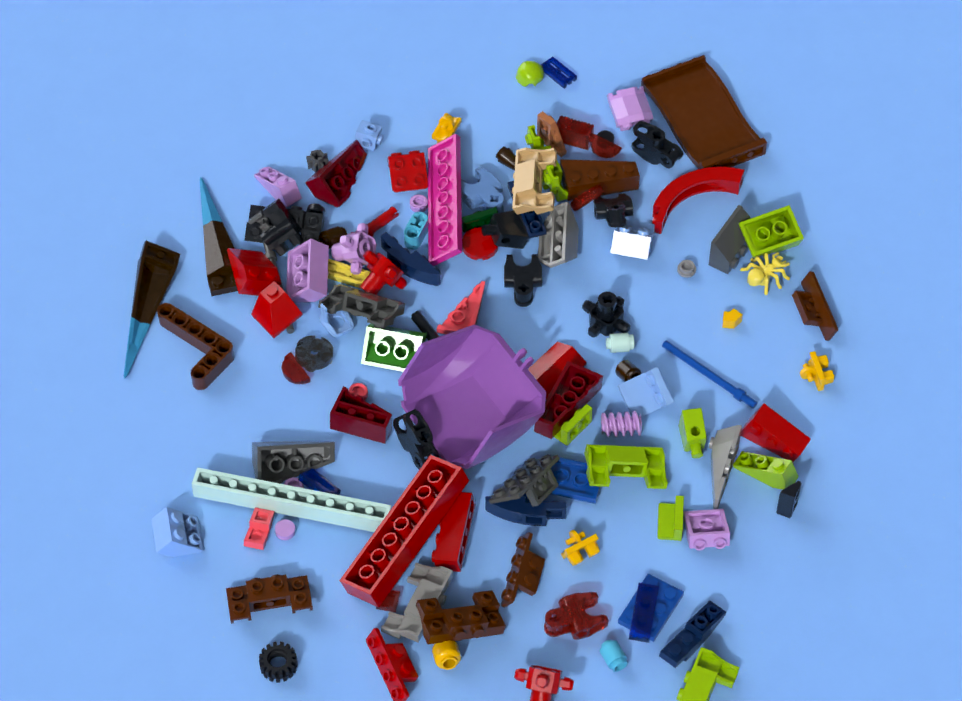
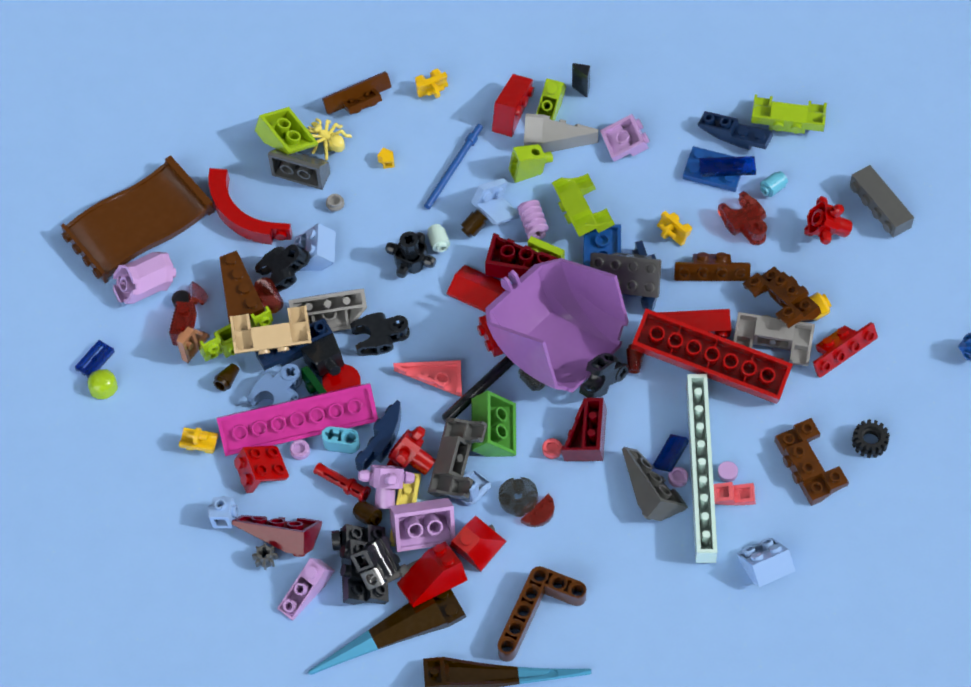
camera: 100 degrees left, 5 degrees up
(656, 148) = (193, 244): black piece -> none
(671, 520) = (620, 166): lime panel -> none

